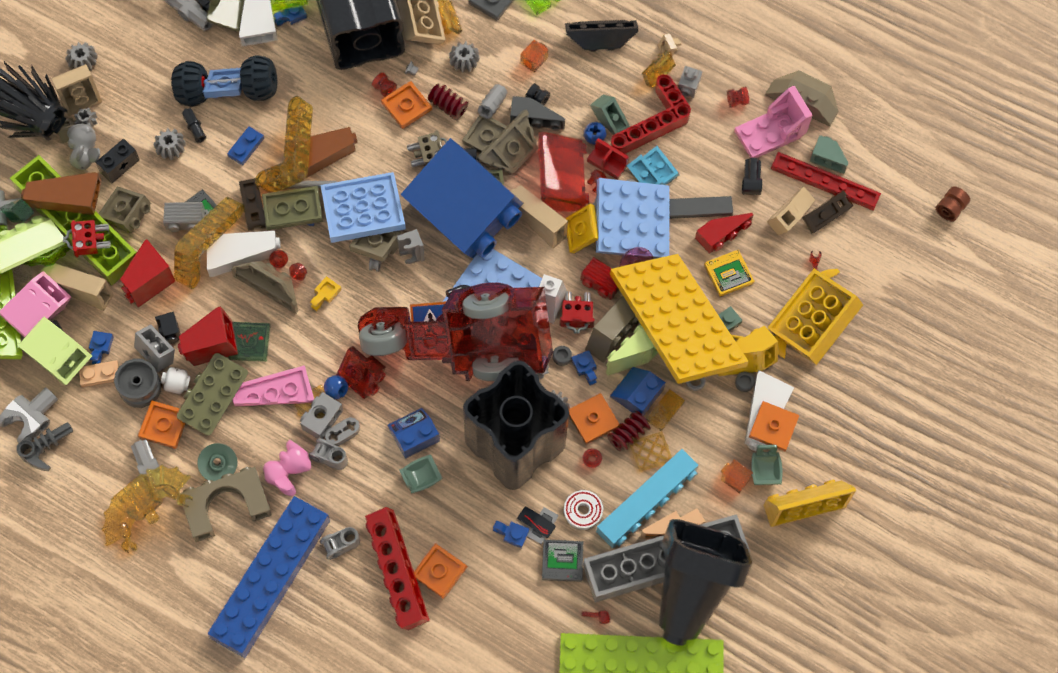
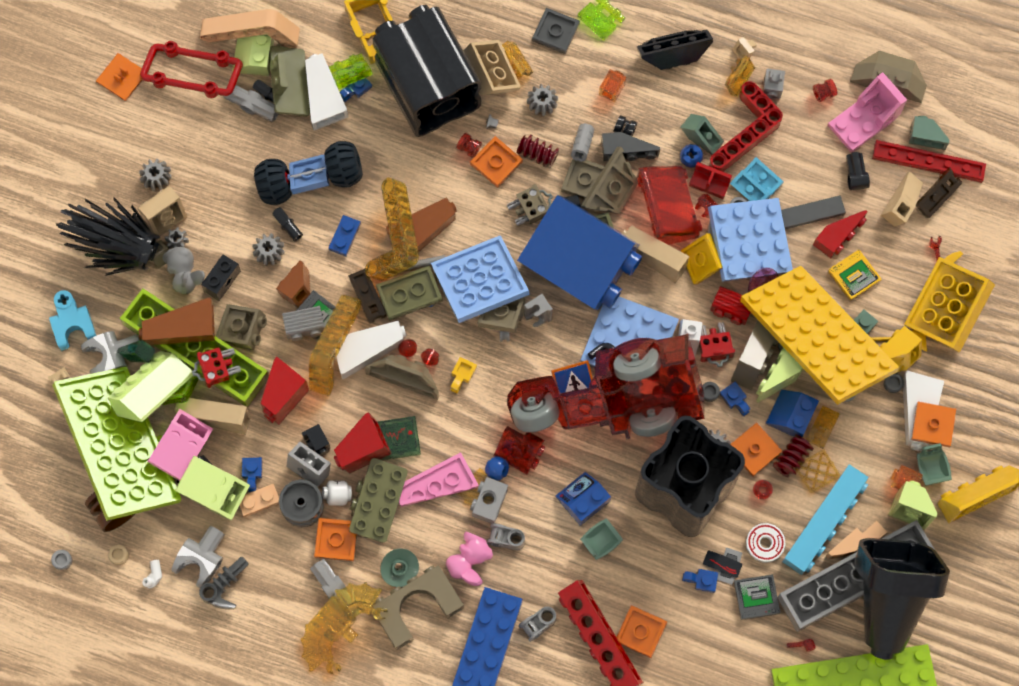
camera: 10 degrees left, 5 degrees up
(186, 181) = (295, 285): none -> dark orange slope
(340, 428) = (510, 508): light grey beam -> none
(735, 498) = (913, 504): none -> yellowish green slope

